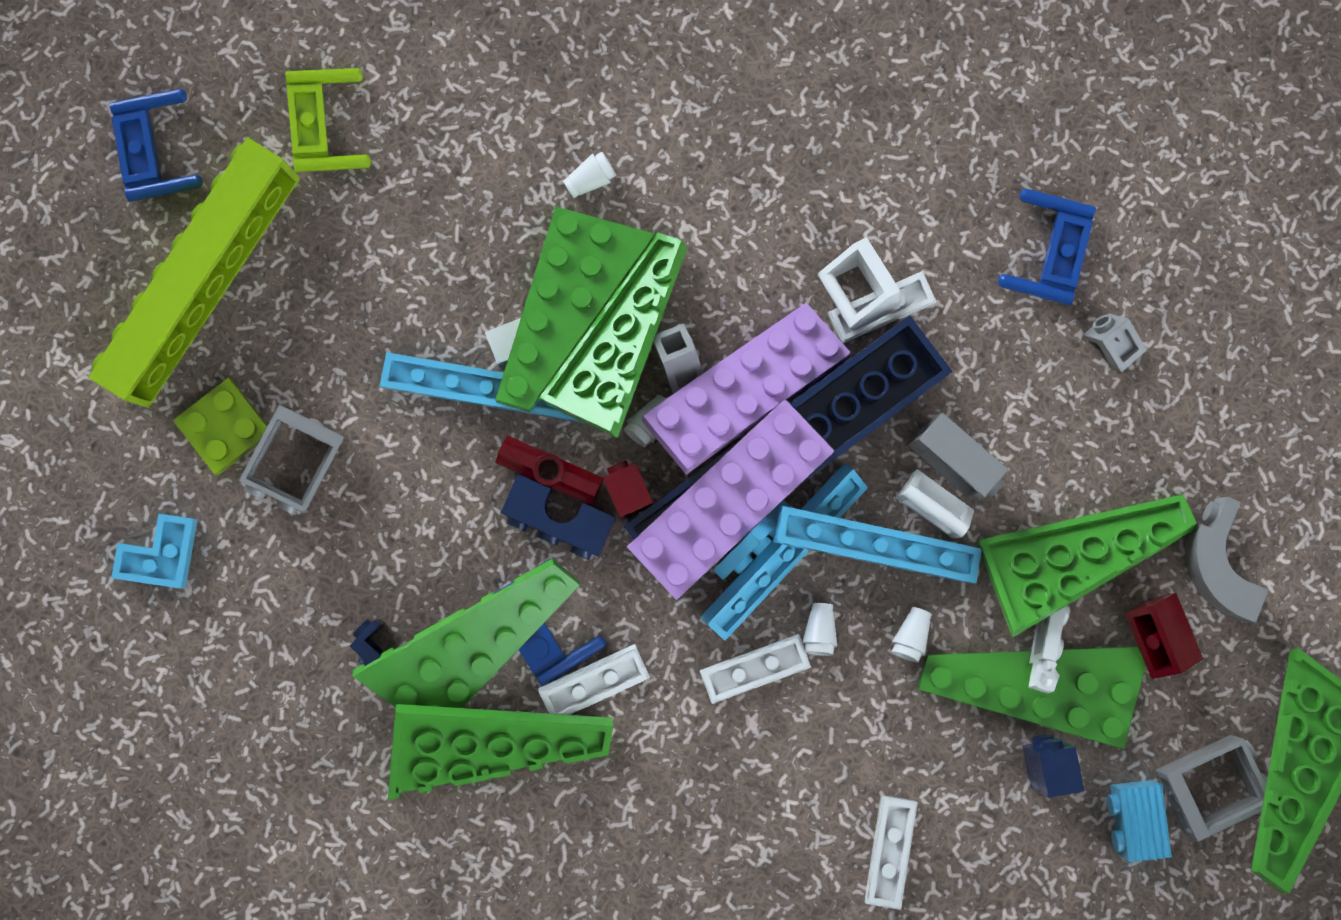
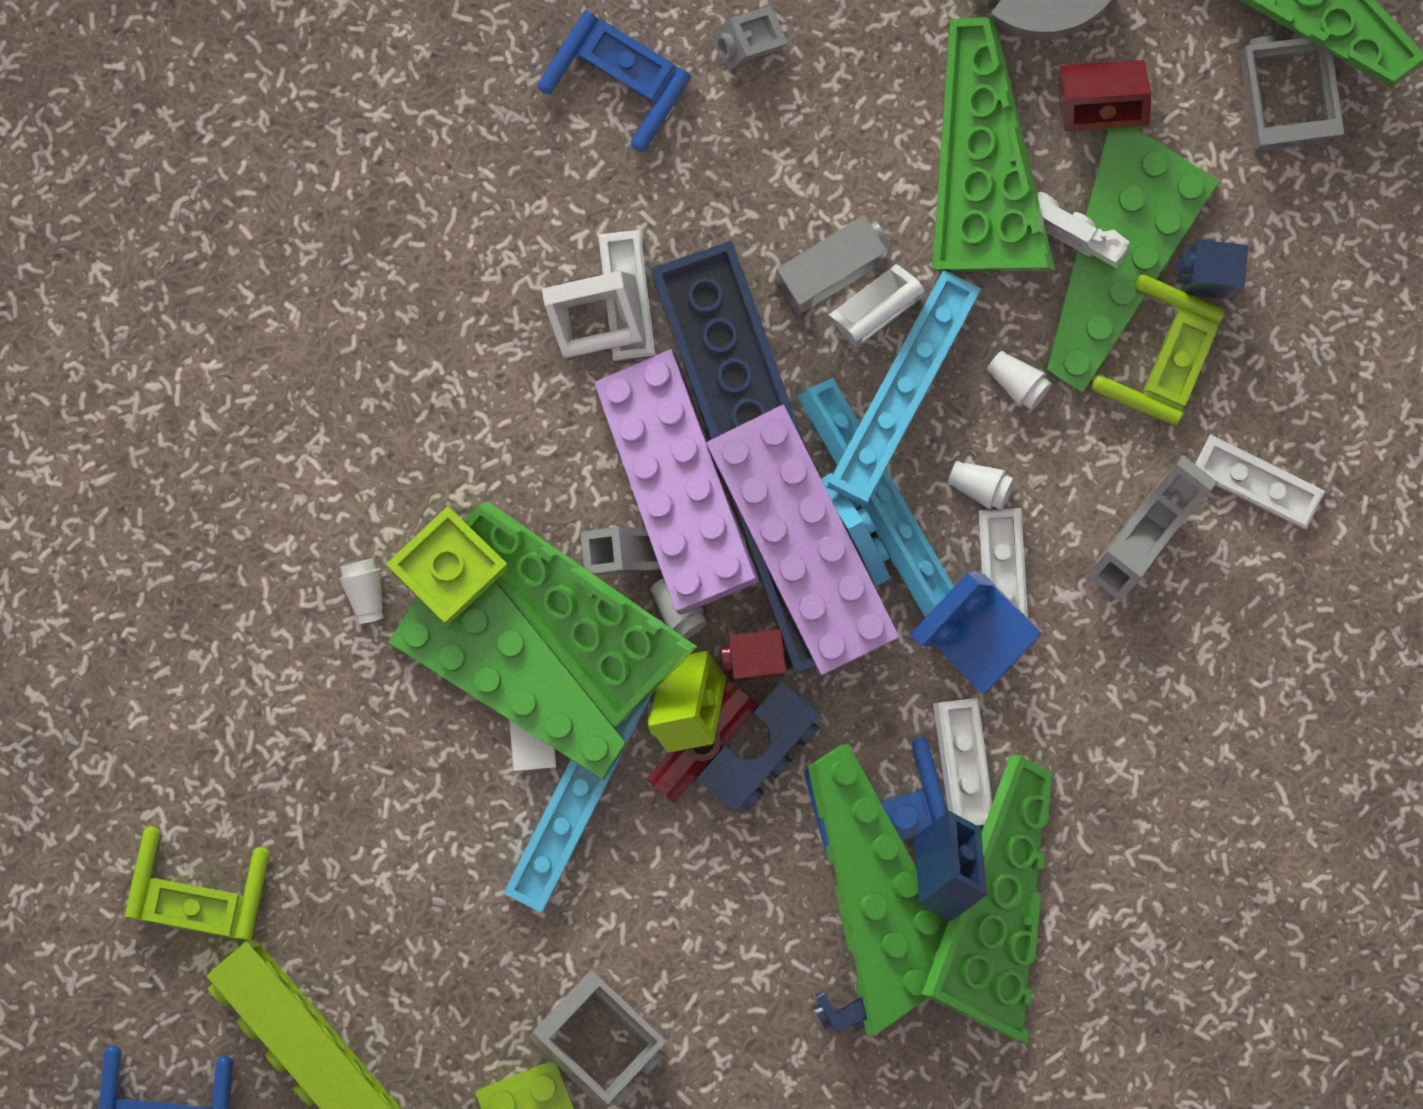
camera: 75 degrees left, 0 degrees up
(506, 696) = (950, 865): none -> dark blue brick
(573, 449) = (688, 704): none -> lime brick
(626, 230) = (447, 566): none -> lime plate
(702, 662) = (978, 631): none -> blue bracket
(827, 777) = (1151, 528): none -> light grey arch
(968, 758) = (1178, 359): none -> lime plate
(1139, 821) = (1304, 190): medium azure brick -> none

